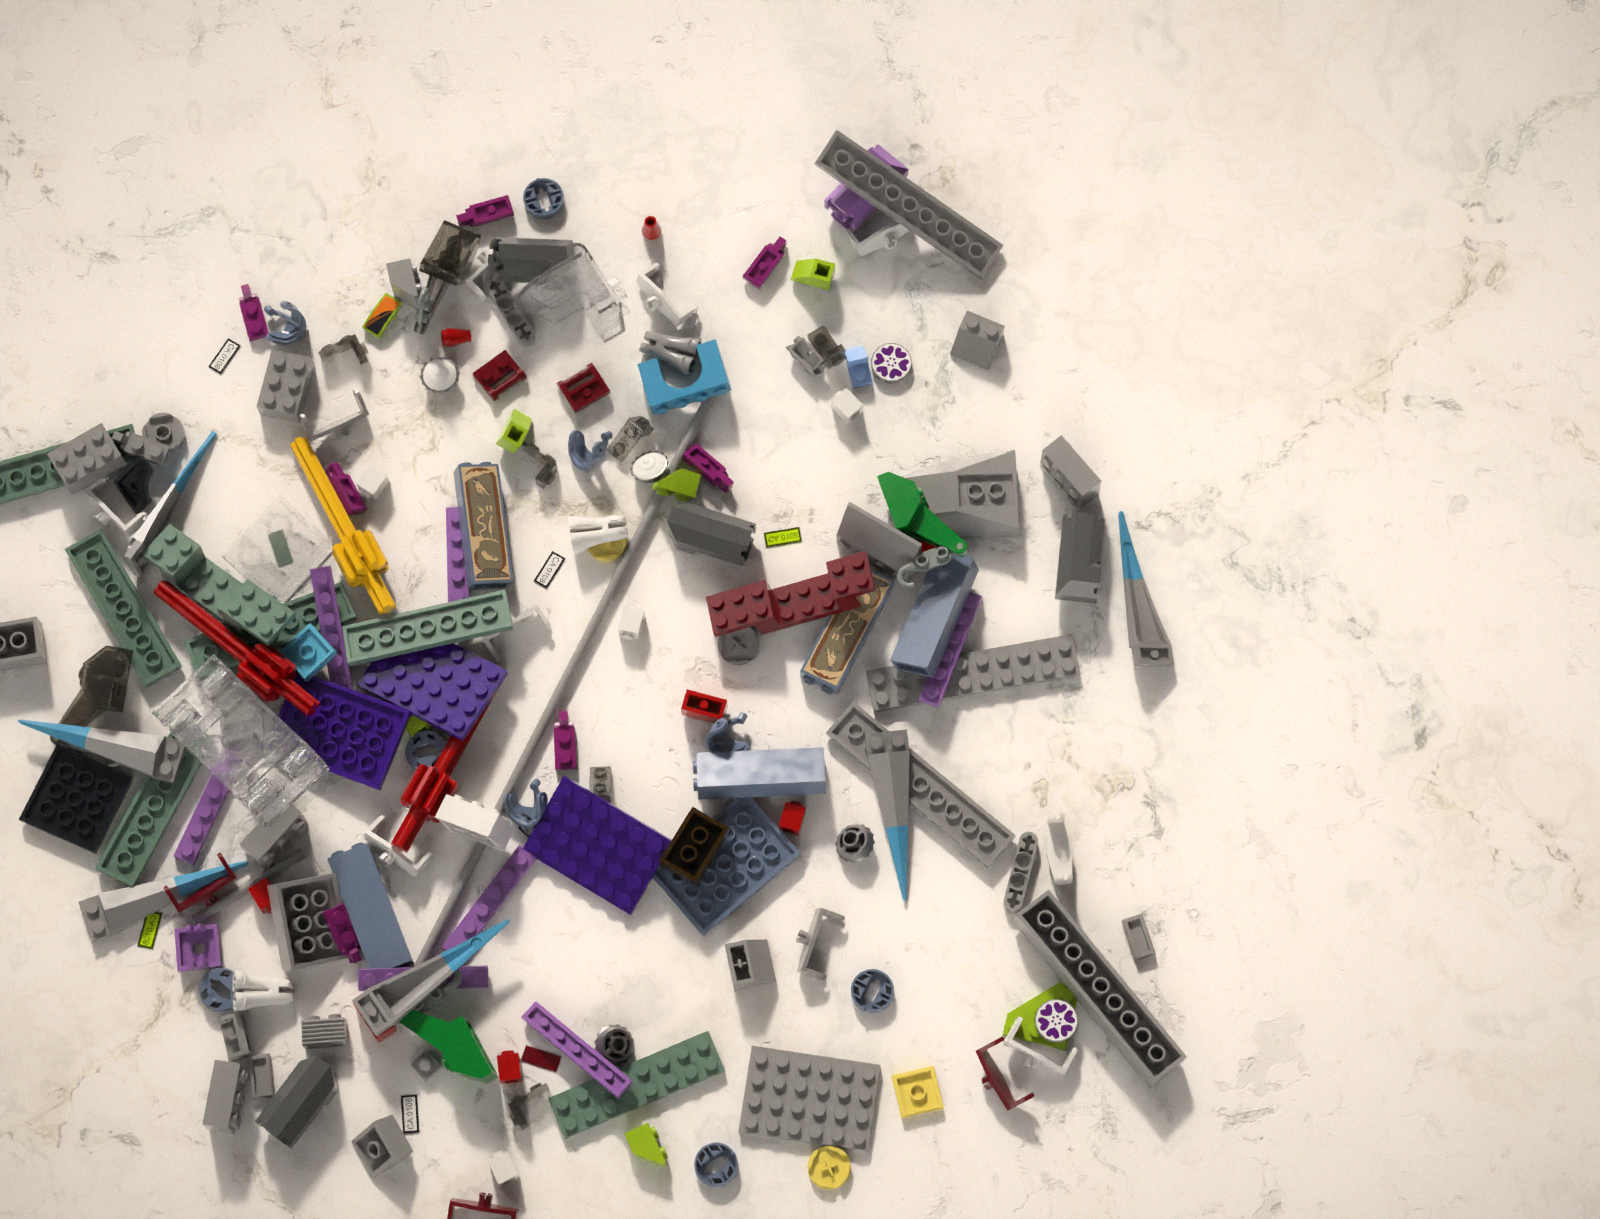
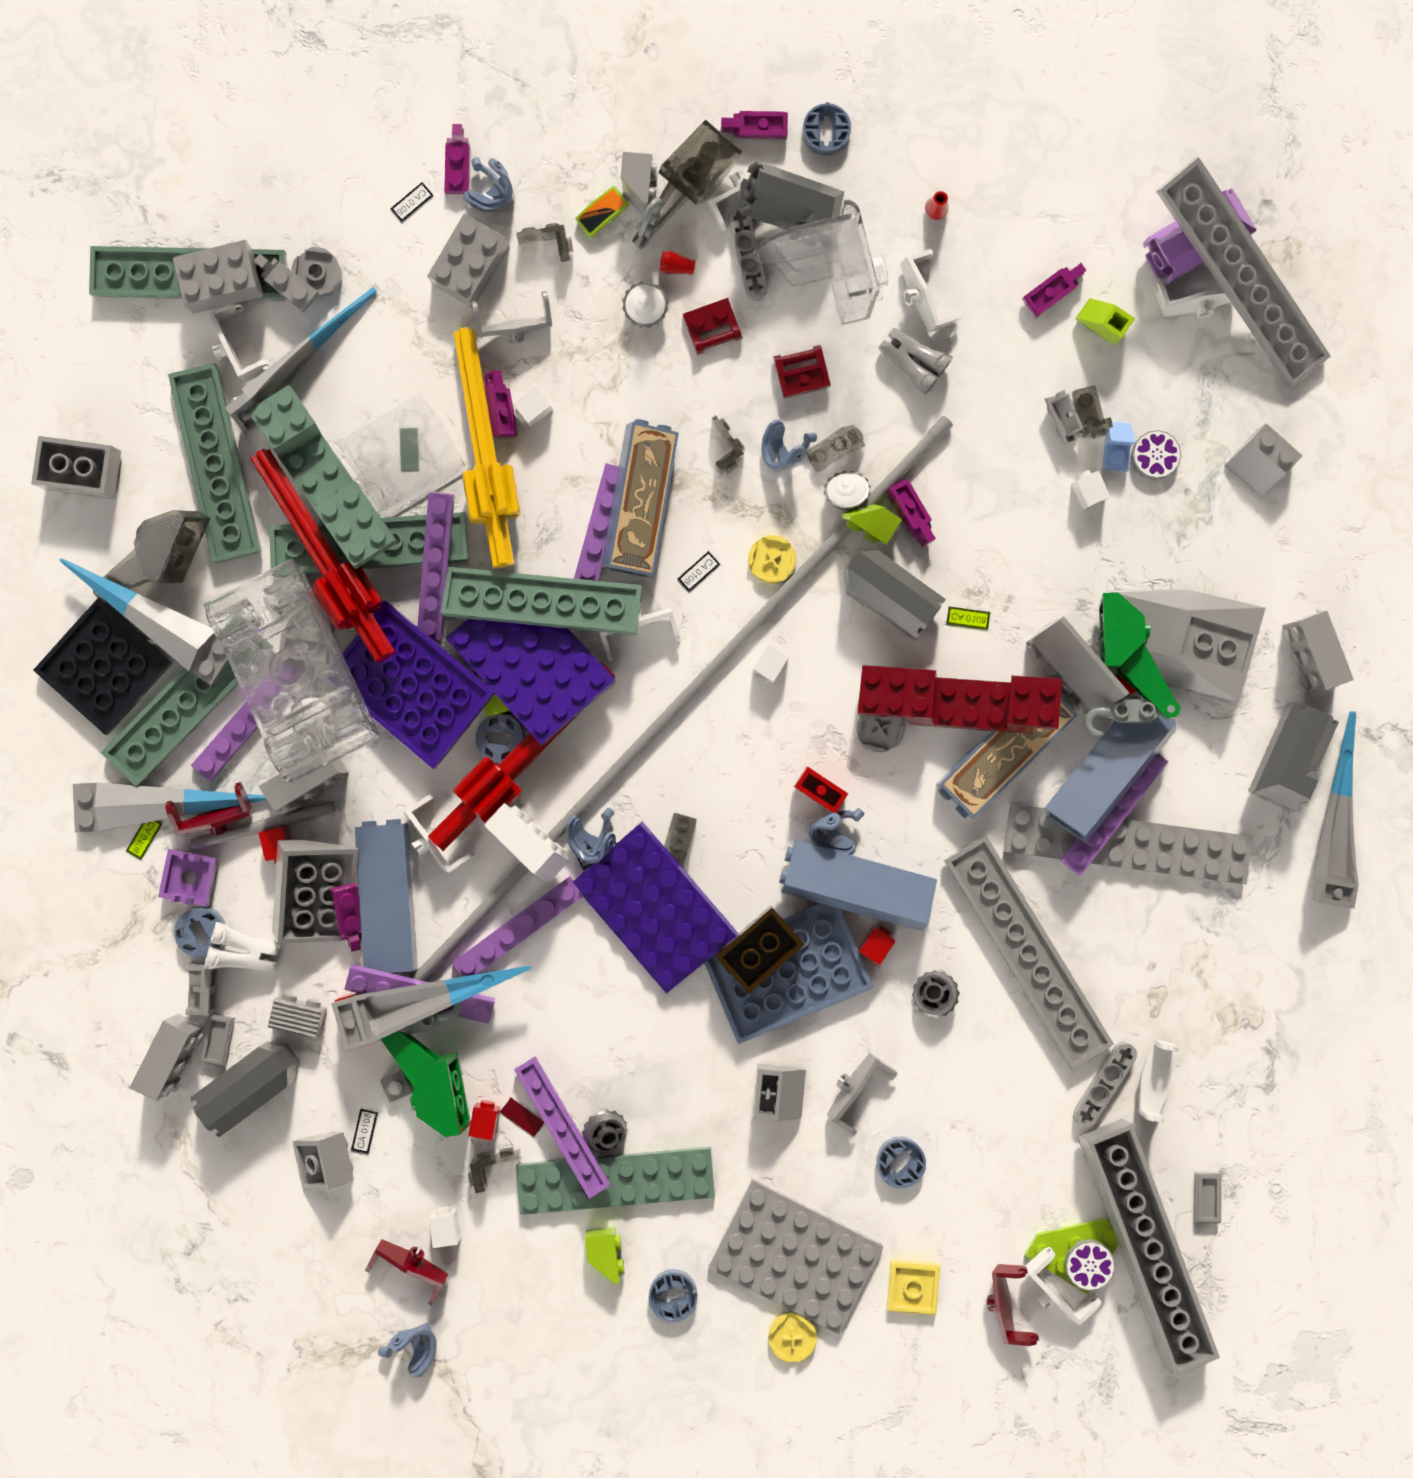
camera: 15 degrees right, 15 degrees up
(134, 484) = (266, 323): black tile -> none
(309, 652) = (401, 585): medium azure tile -> none
(514, 431) = (709, 399): lime slope -> none
(564, 743) = (654, 777): magenta hinge -> none
(595, 531) = (747, 554): white piece -> none
(710, 383) = (949, 414): dark azure arch -> none
(889, 765) = (1003, 923): light grey plate -> none

